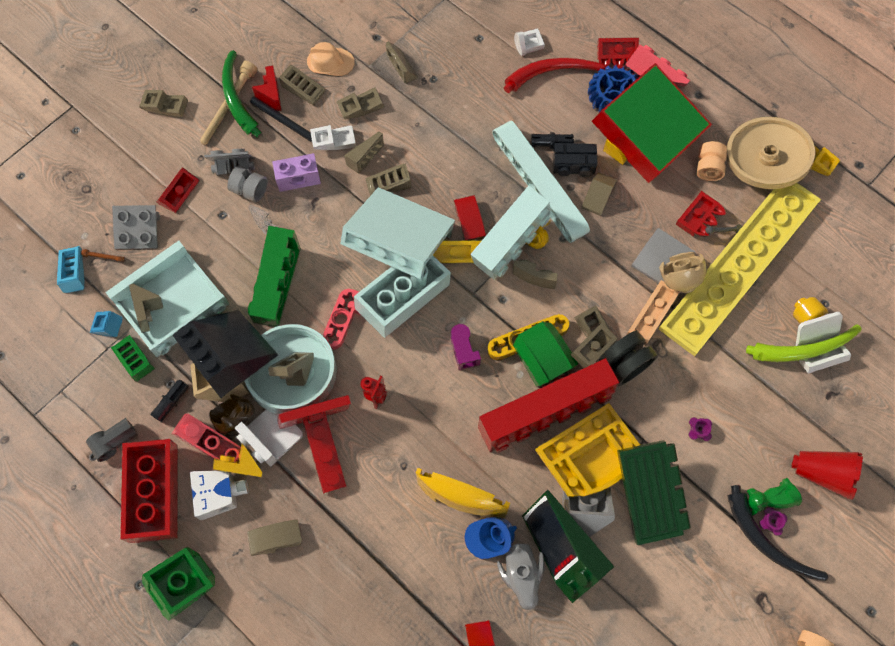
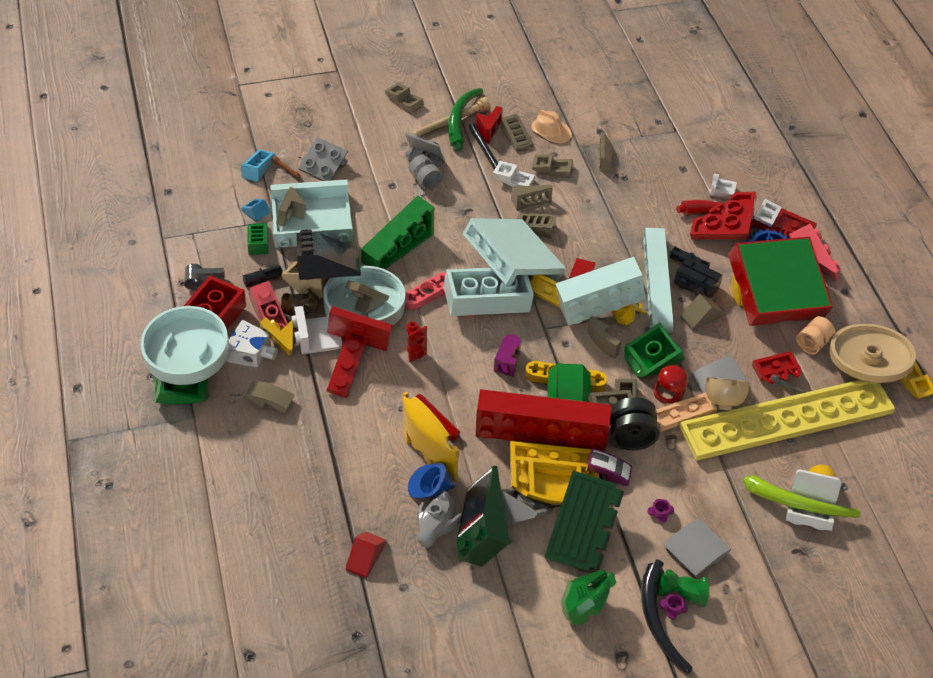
camera: 30 degrees right, 20 degrees down
(159, 548) = (185, 345): none -> light aqua brick
(178, 190) = (371, 154): red slope -> none
(296, 172) = (467, 182): lavender brick -> none
(443, 457) = (453, 432): none -> red axle
(560, 77) = (727, 219): none -> red plate
(587, 49) = (767, 212): none -> white slope
(588, 266) = (652, 352): none -> green slope
(628, 287) = (673, 379): none -> red helmet
(630, 413) = (608, 464): none -> slope
(702, 576) = (583, 600): none -> green helmet
(755, 448) = (697, 547): none -> light grey slope
(830, 470) = (752, 594): red cone -> none

